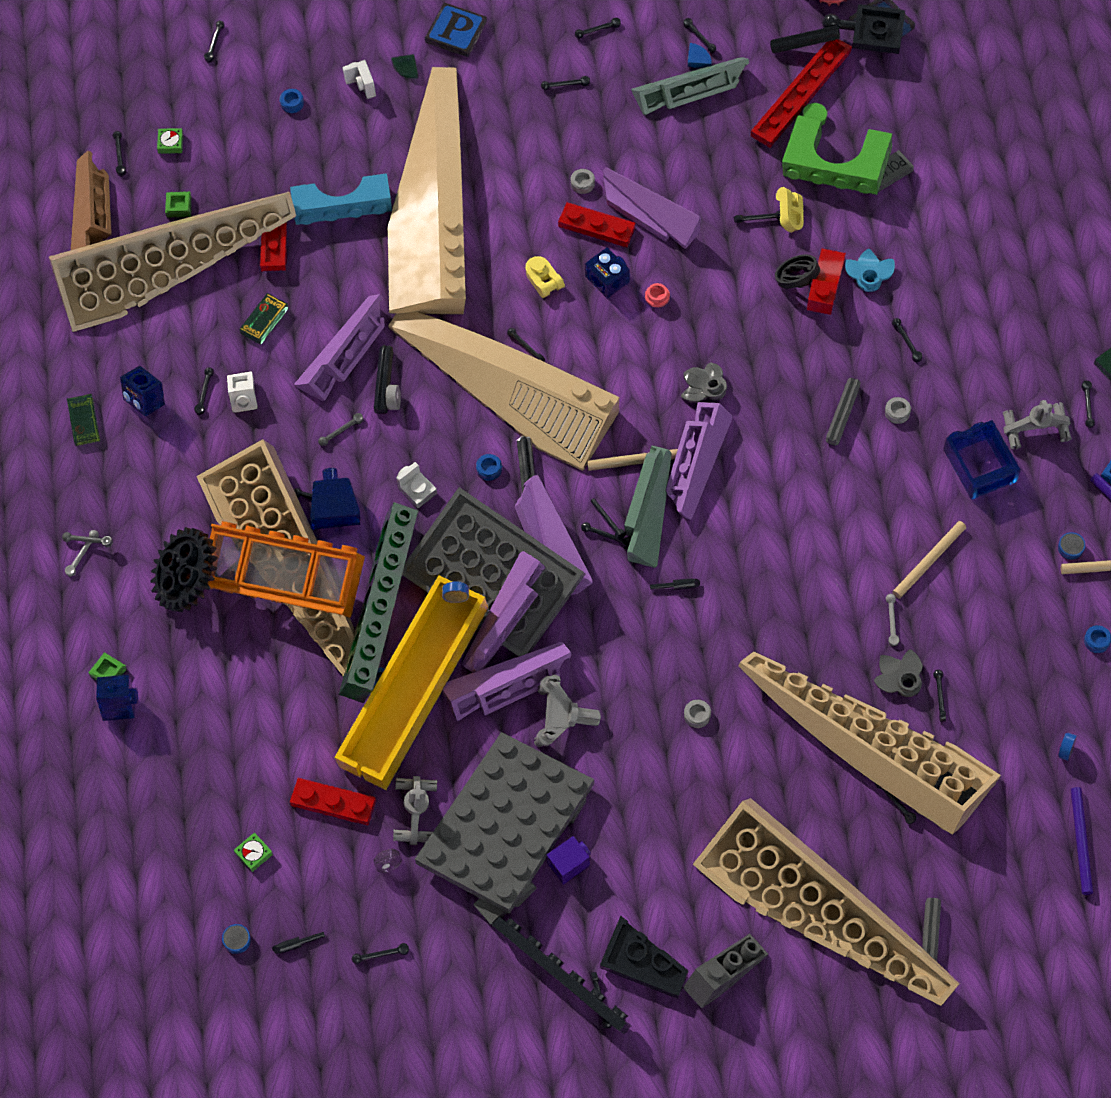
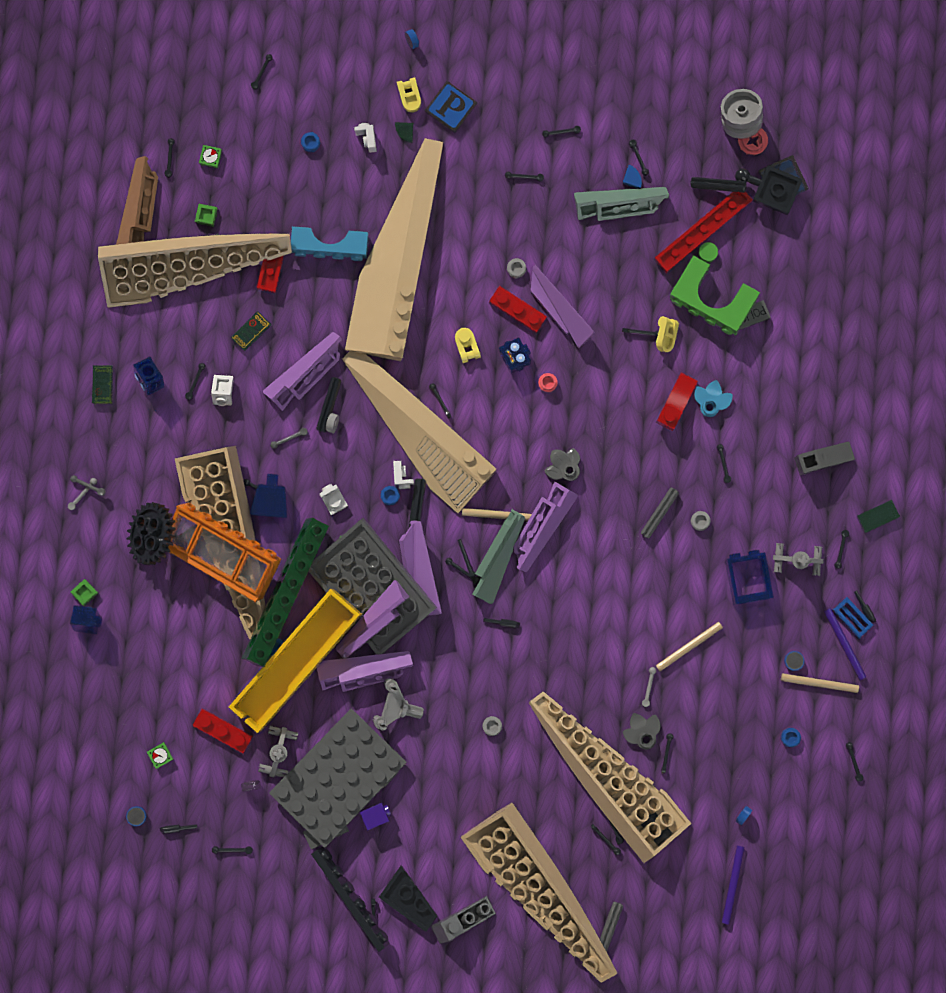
camera: 10 degrees right, 20 degrees up
(404, 31) = (410, 101): none -> light yellow plate
(455, 592) = (338, 608): tile -> none
(497, 442) = (399, 472): none -> white bracket
(795, 264) = (652, 381): black piece -> none
(910, 833) = (617, 851): none -> black hinge
(1028, 303) = (824, 458): none -> dark grey slope

